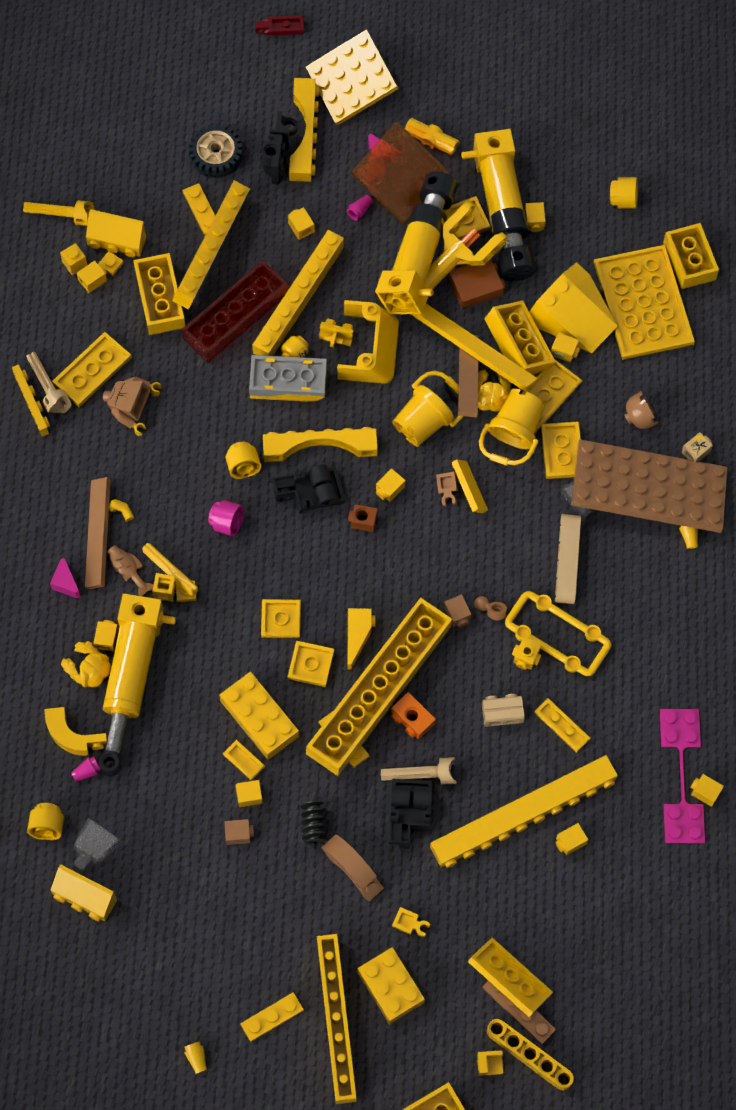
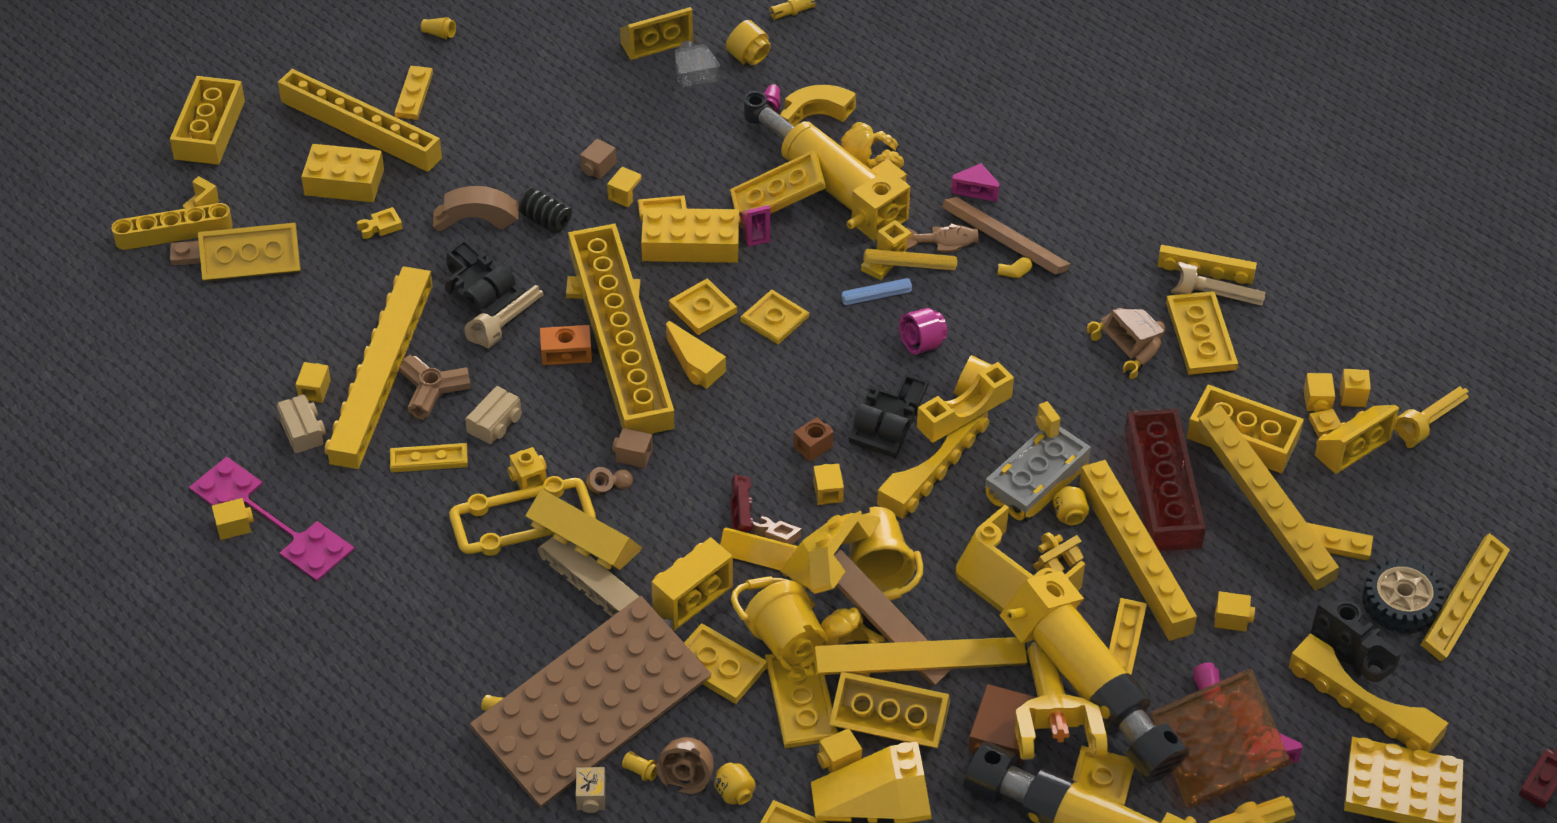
camera: 130 degrees right, 20 degrees down
(177, 688) = (781, 185): none -> yellow tile
(189, 121) = (1465, 597): none -> yellow plate
(209, 575) = (876, 291): none -> light blue axle
(217, 680) = (756, 225): none -> dark pink slope
(257, 383) = (1048, 420): none -> yellow plate
(259, 433) = (988, 390): none -> yellow arch
(367, 263) = (1127, 632): none -> yellow plate
(448, 519) = (741, 504): none -> dark red hinge
(462, 424) = (814, 558): none -> yellow wedge
(510, 780) = (431, 384): none -> medium nougat piece
(530, 494) = (692, 582): none -> yellow brick
(549, 576) = (582, 530): none -> yellow slope
(608, 816) = (300, 423): none -> tan brick
(630, 382) = (734, 783): none -> yellow head
(659, 438) = (640, 766): none -> yellow pin

